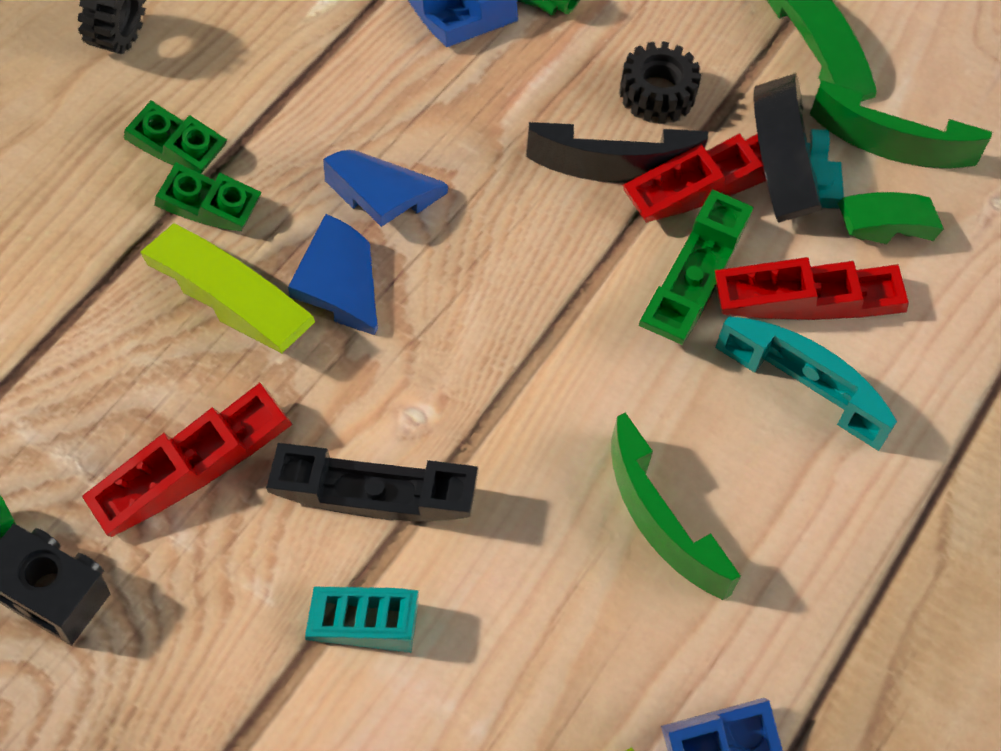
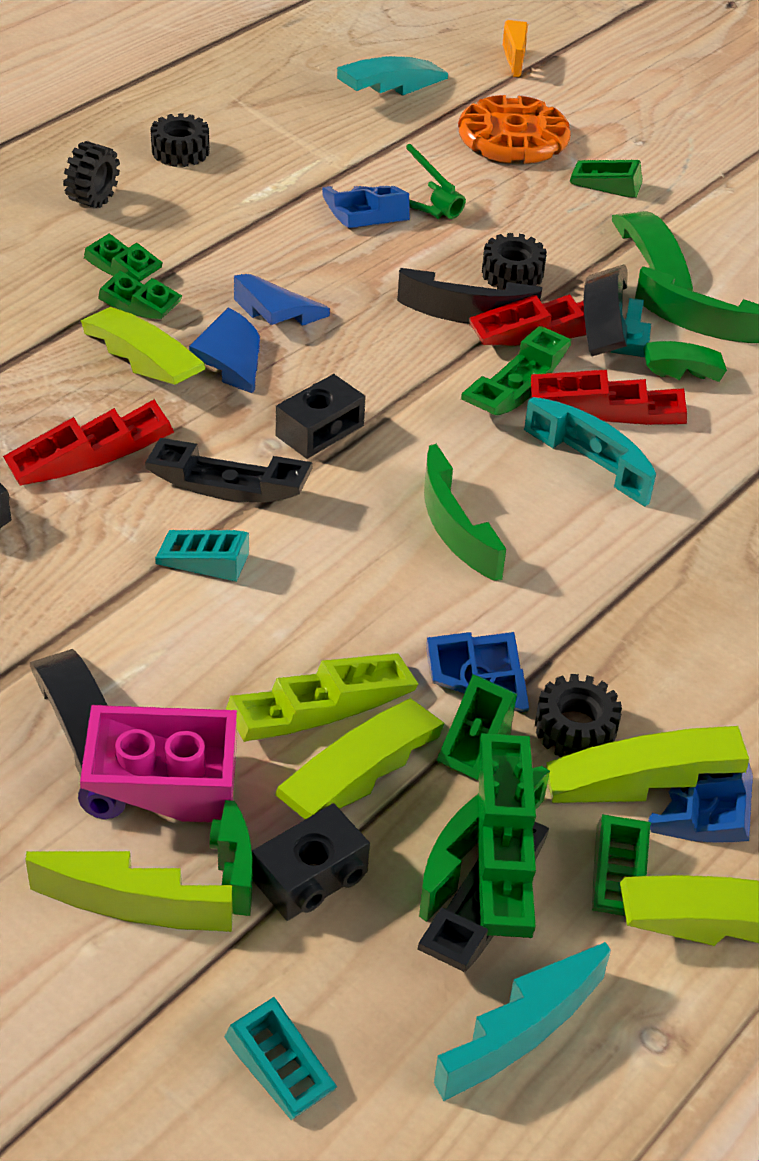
camera: 10 degrees right, 15 degrees down
(460, 396) = (320, 415): none -> black brick

